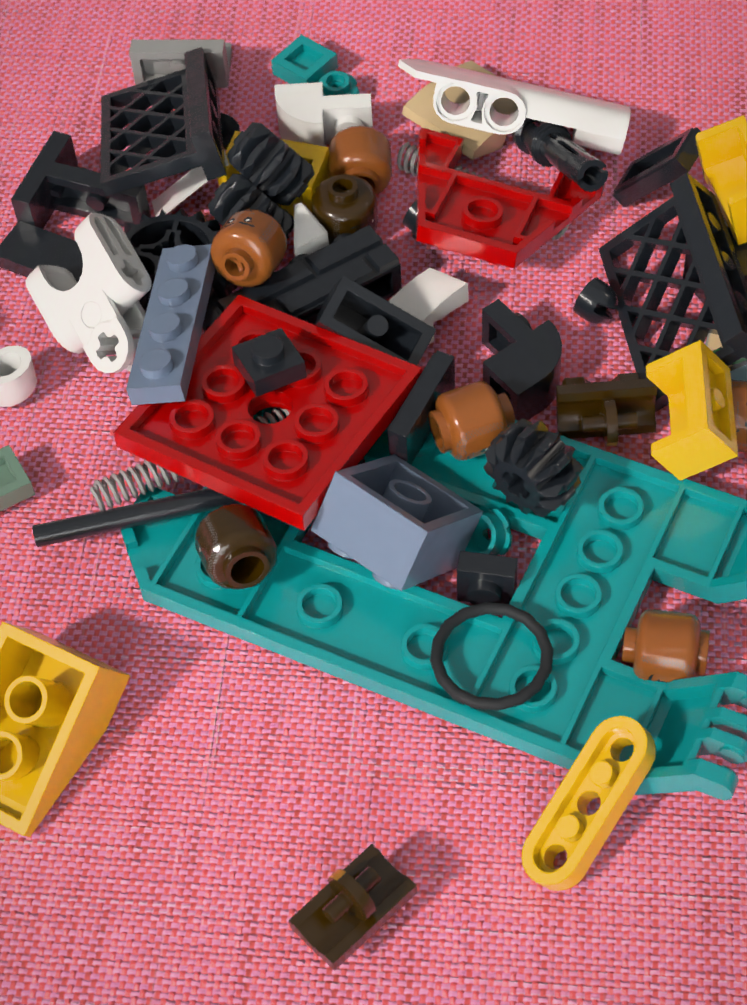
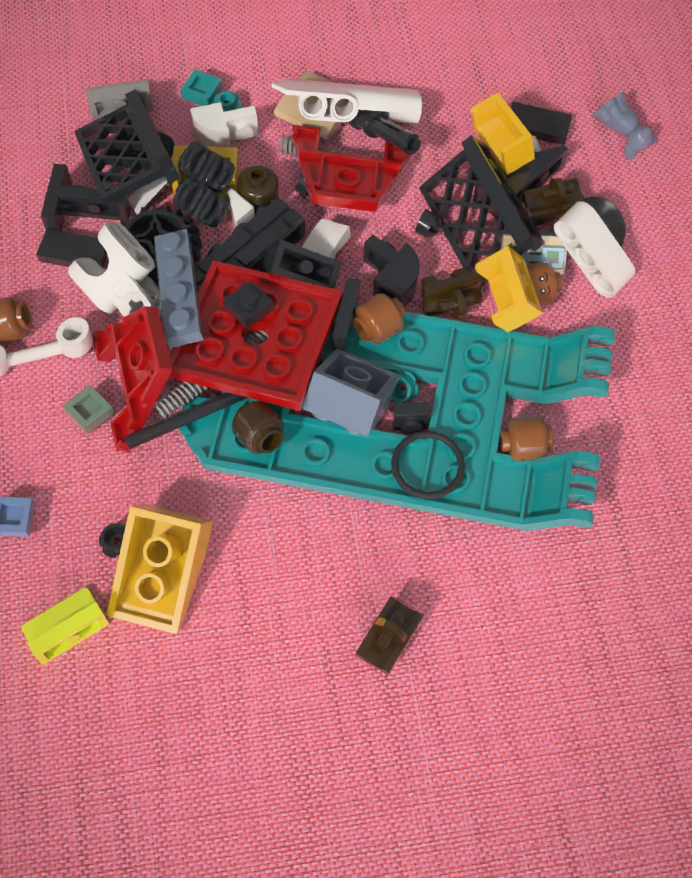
camera: 20 degrees left, 10 degrees up
(87, 418) = (142, 366): none -> red wing
(248, 248) = (210, 228): dark orange head -> none
(361, 153) = (258, 148): dark orange head -> none
(533, 467) = (425, 343): black gear -> none
(593, 775) = (495, 556): yellow plate -> none
(658, 168) = (446, 129): black tile -> none

